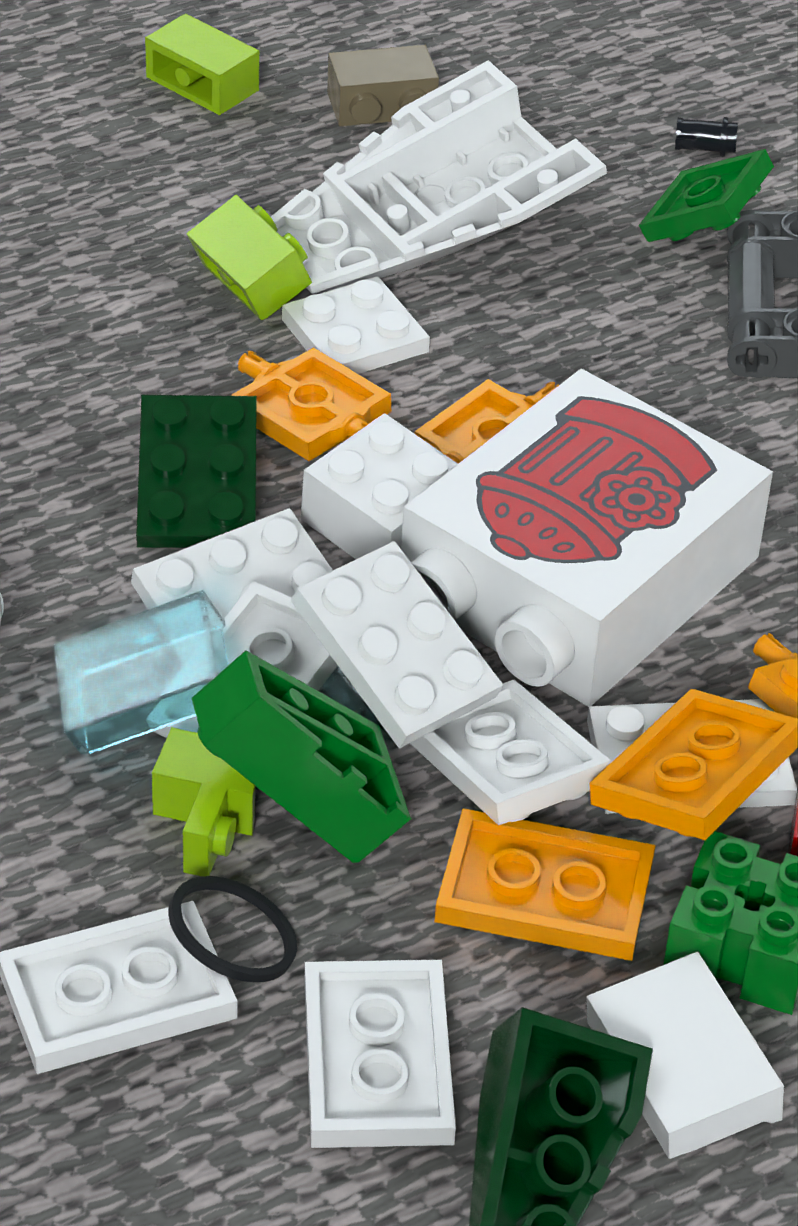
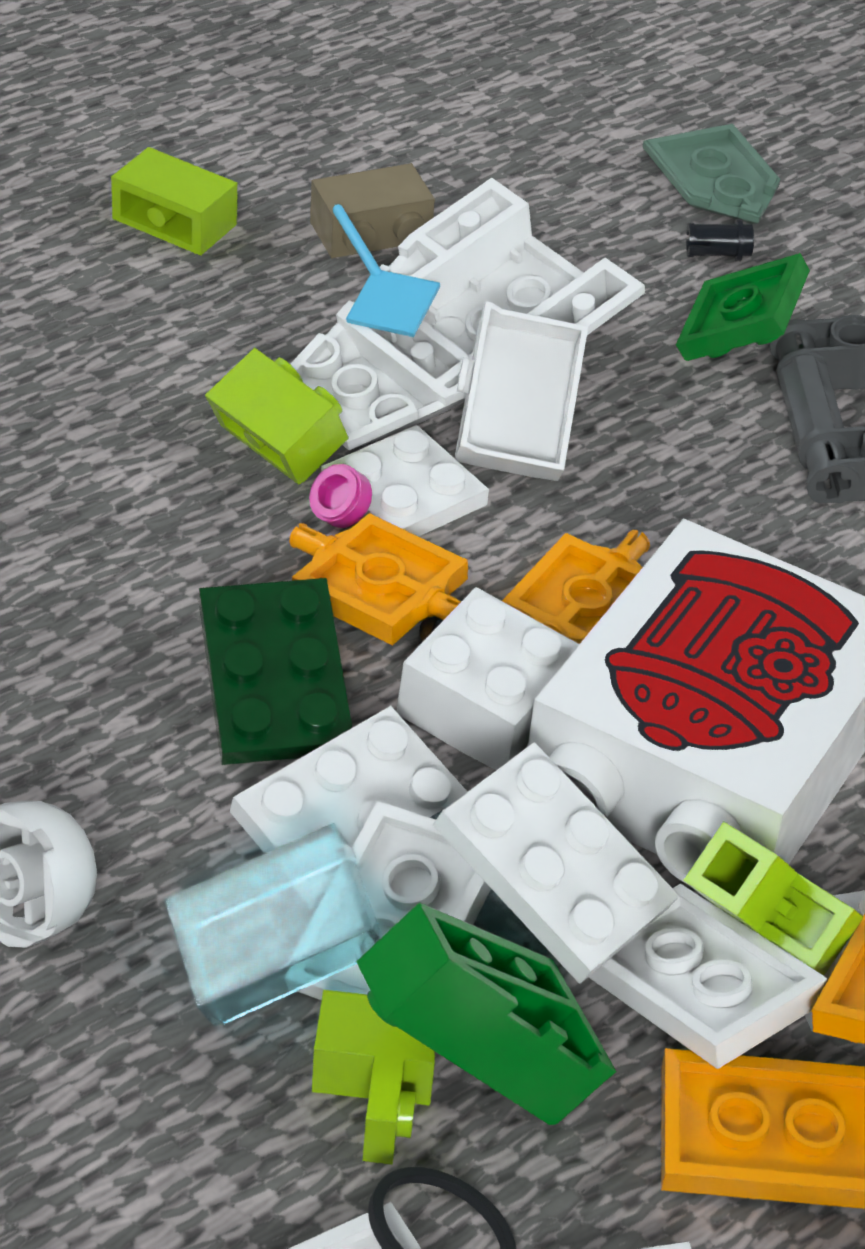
camera: 10 degrees left, 0 degrees up
(292, 330) = (340, 495): none -> dark pink tile
(373, 163) = (388, 299): none -> medium azure piece
(471, 253) = (520, 393): none -> white container
(580, 691) = (772, 898): none -> lime brick
(722, 73) = (716, 171): none -> sand green tile

